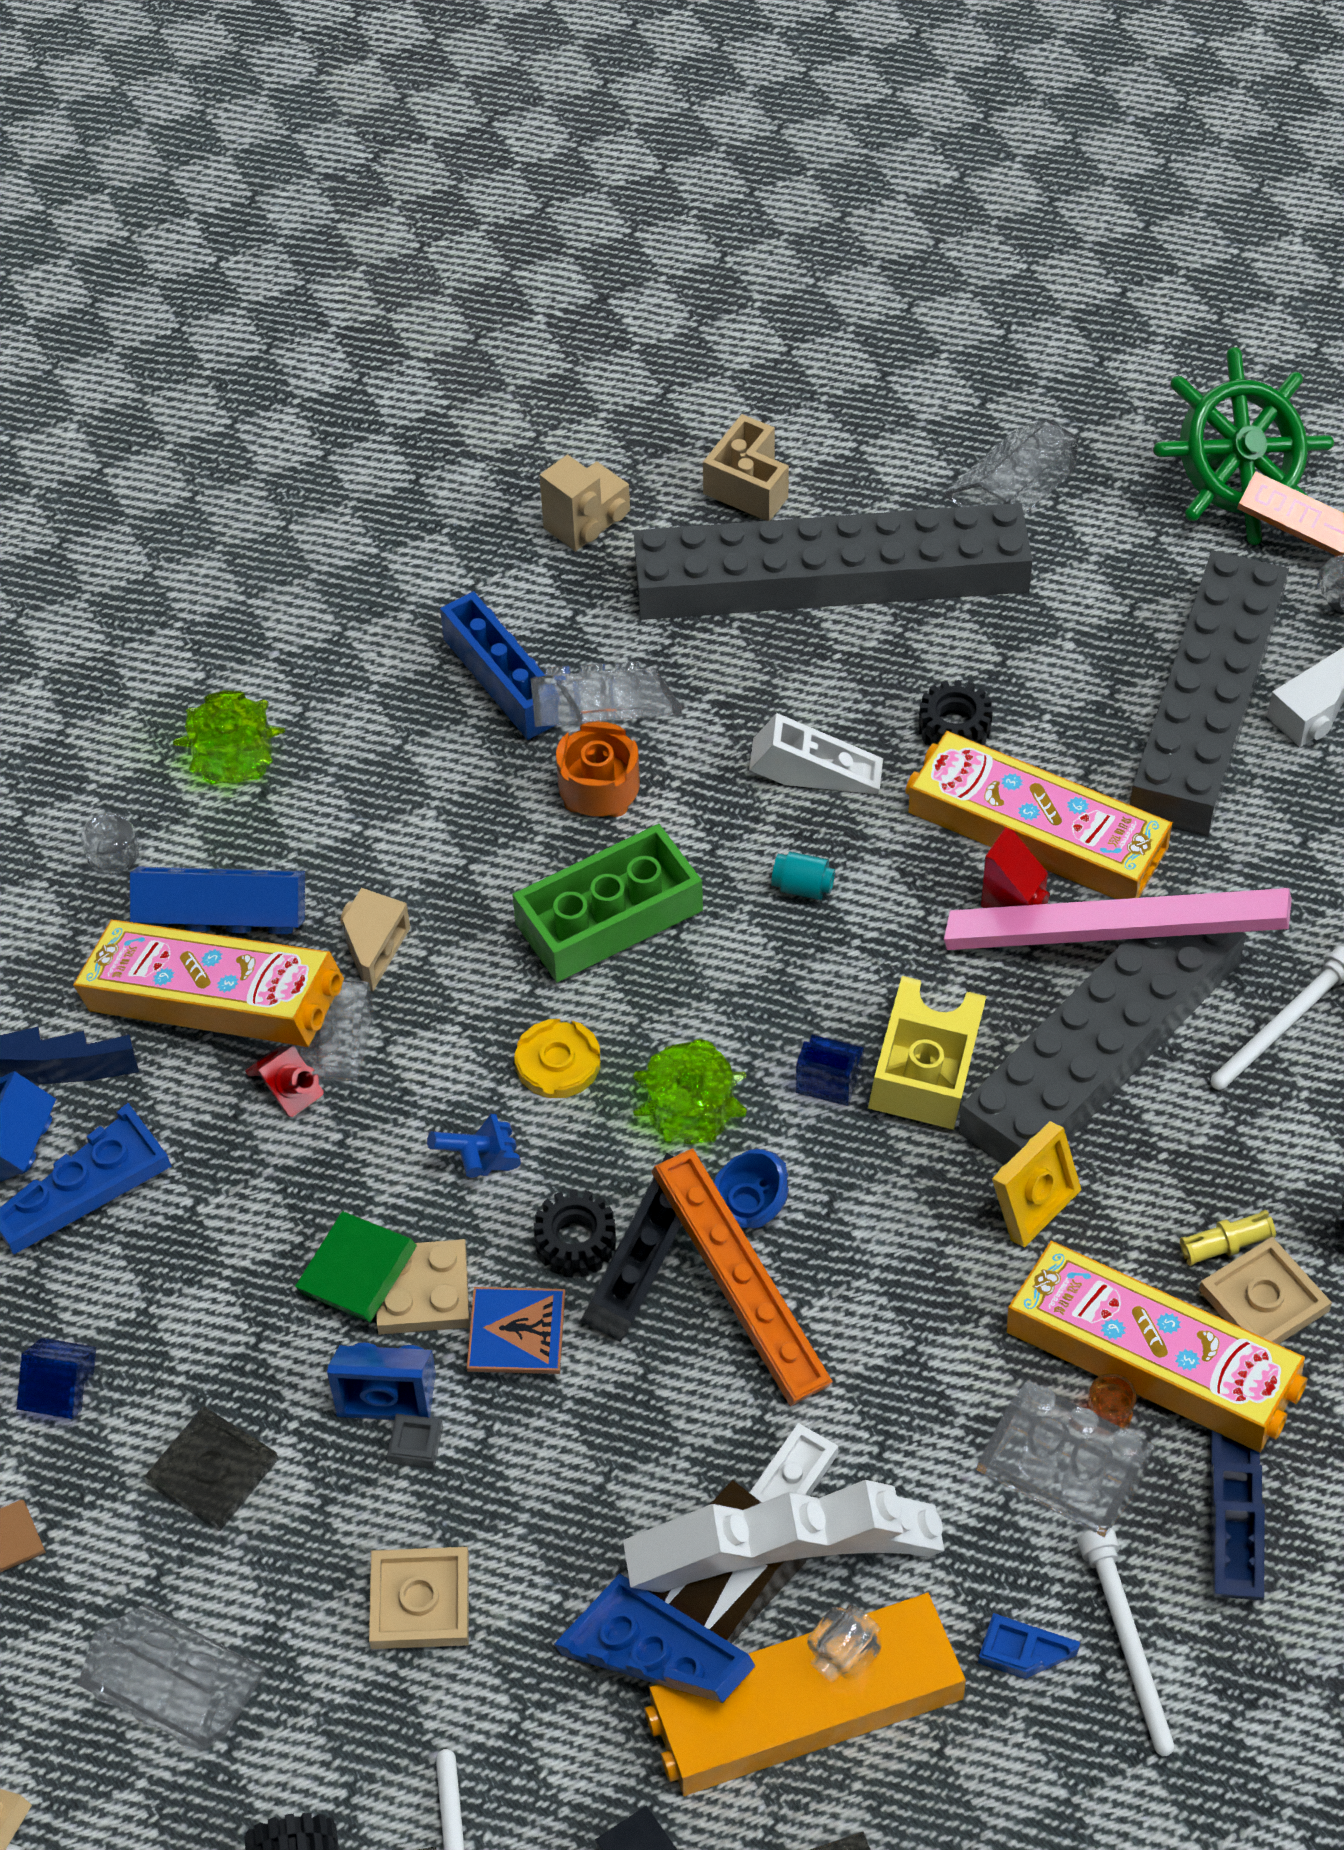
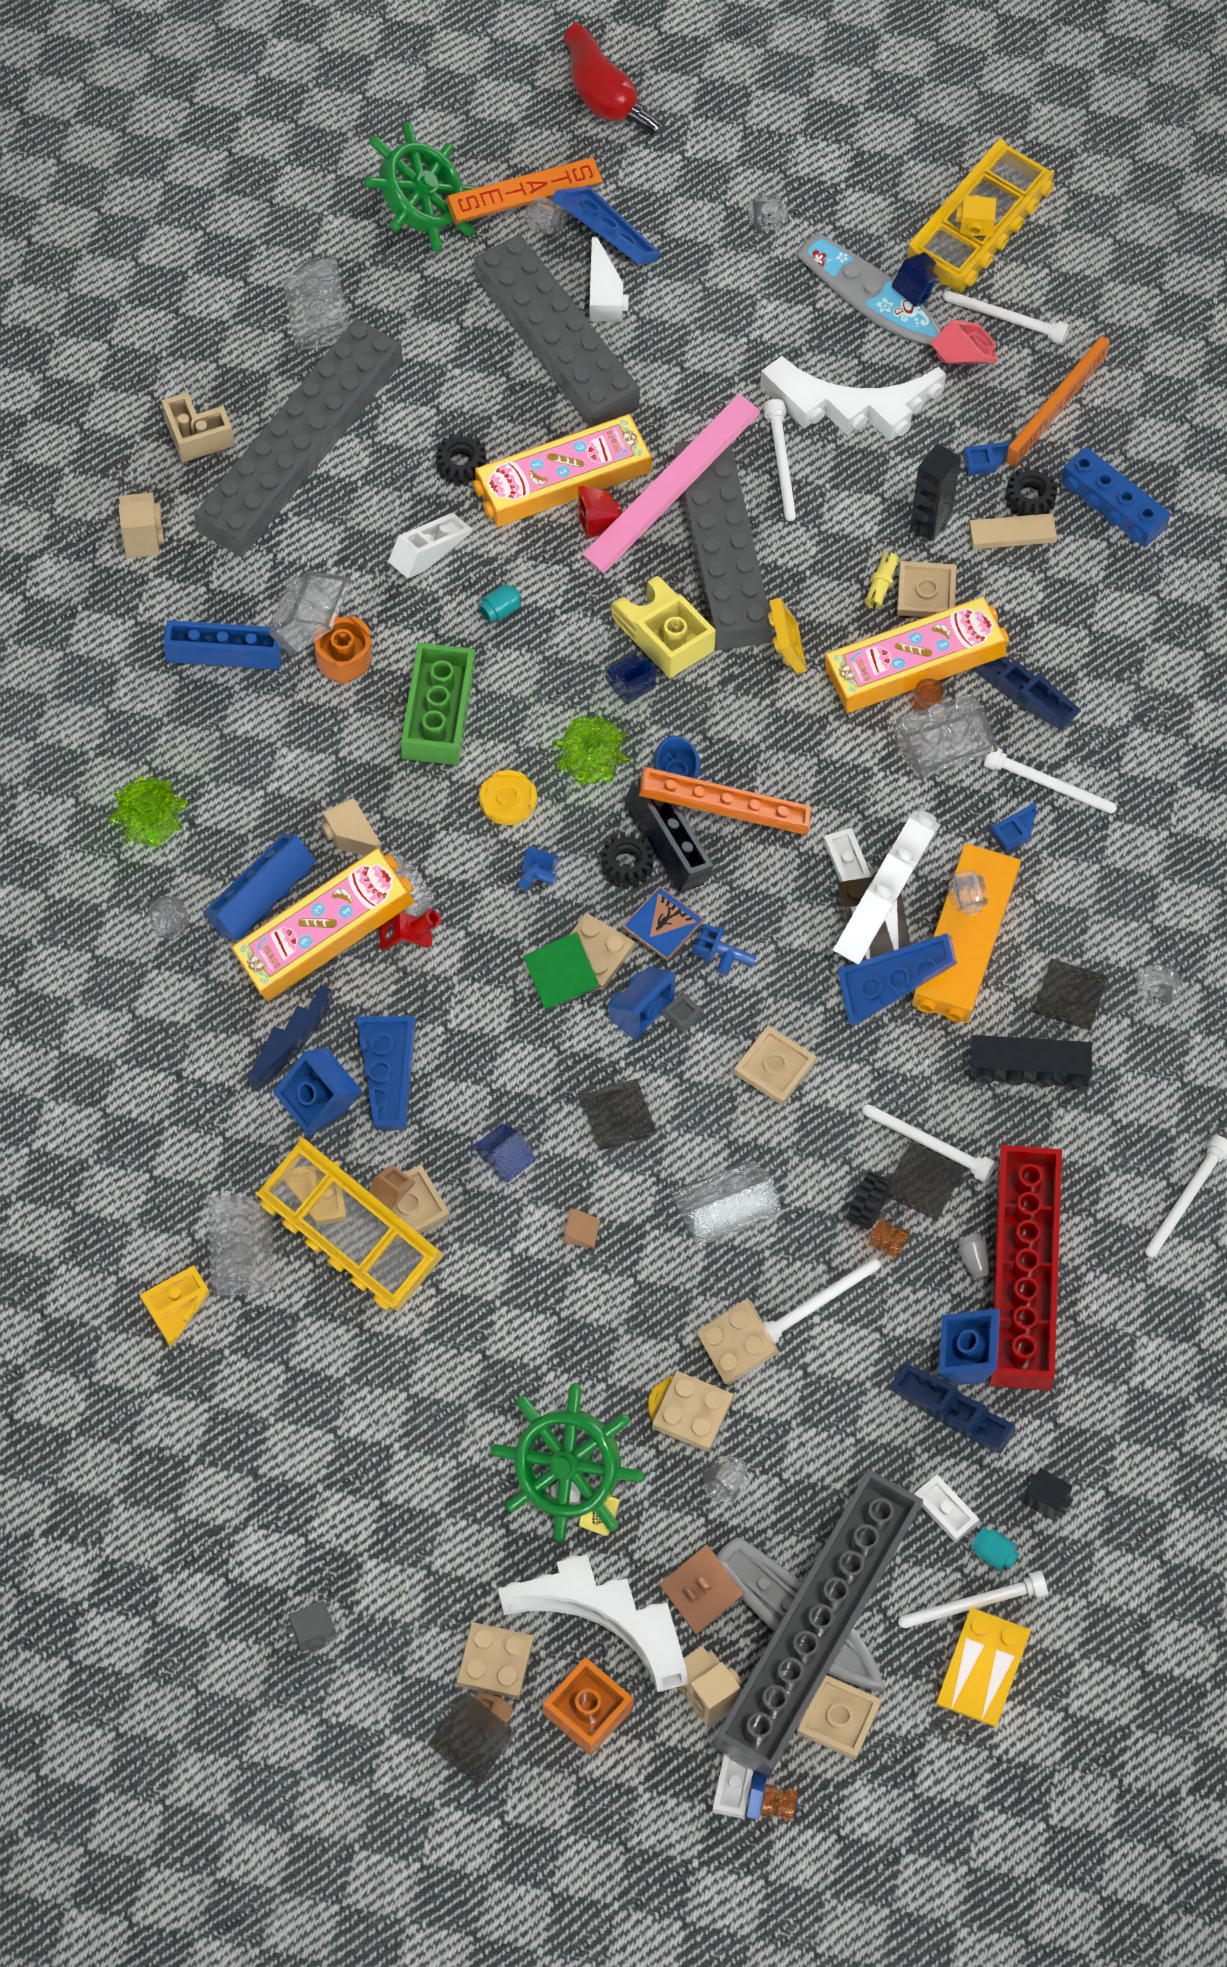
camera: 55 degrees left, 10 degrees up
(536, 1411) = (728, 952): none -> blue arm

